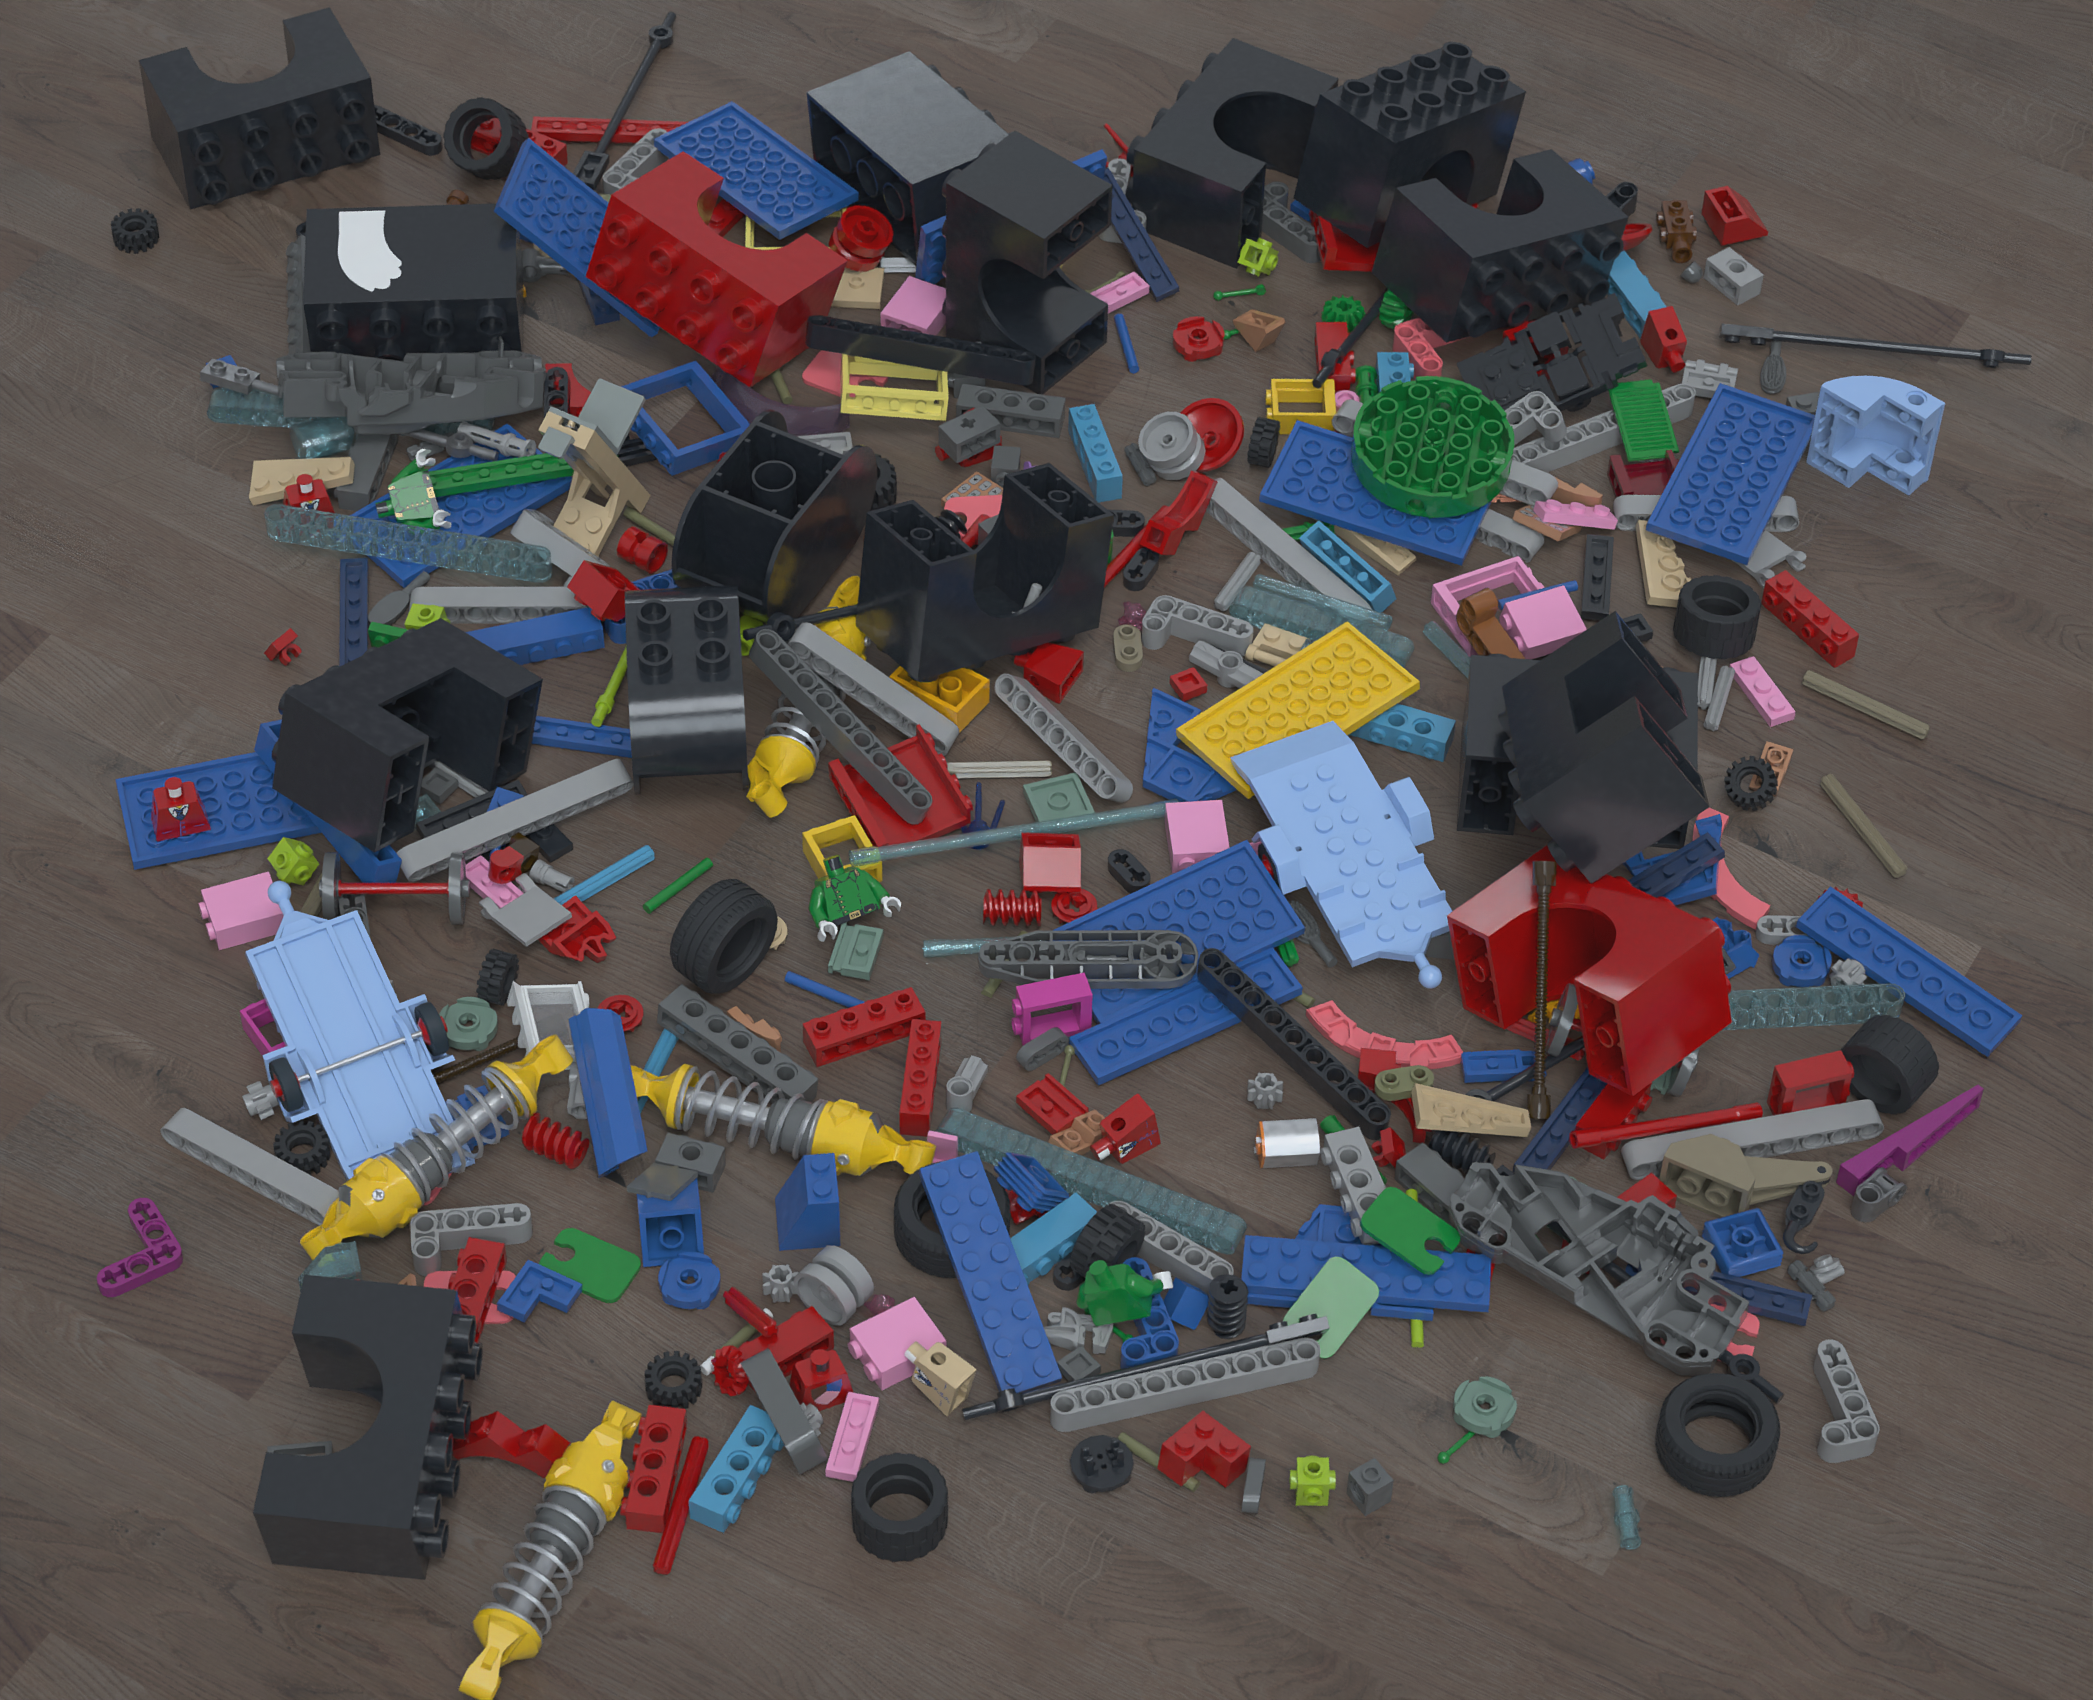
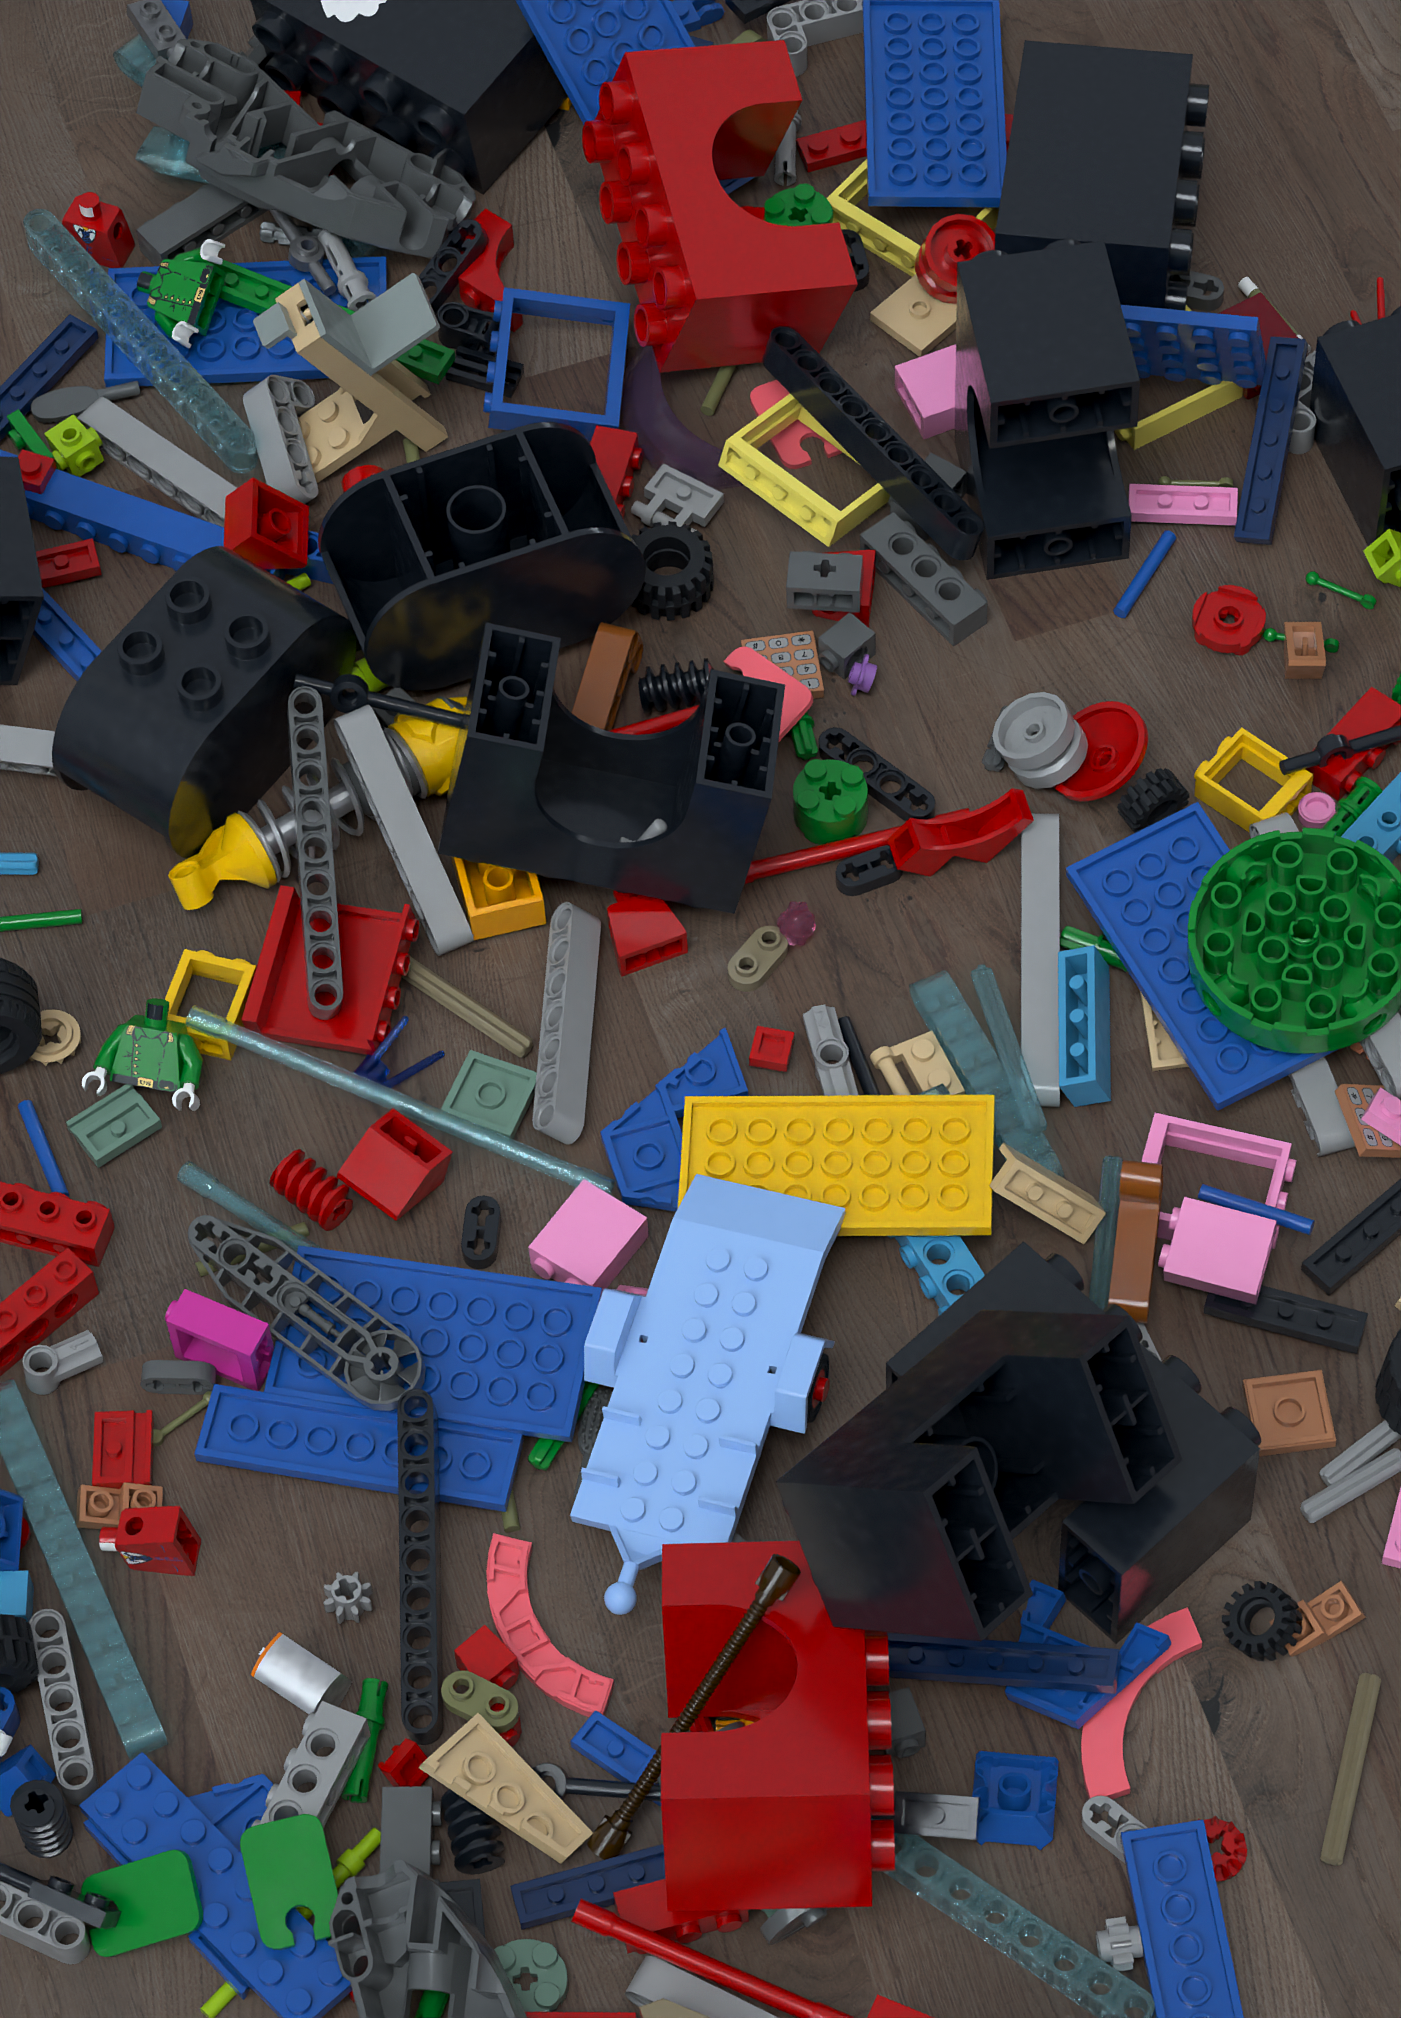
camera: 45 degrees right, 10 degrees up
(272, 476) = (120, 185): tan wing -> none
(1083, 900) = (374, 1220): red gear -> none
(1095, 453) = (958, 692): dark azure brick -> none
(1193, 623) = (851, 989): light grey beam -> none
(1237, 581) = (960, 956): light grey axle -> none
(1425, 654) = (1047, 1195): none -> tan panel
(1796, 974) = (1088, 1862): blue plate -> none

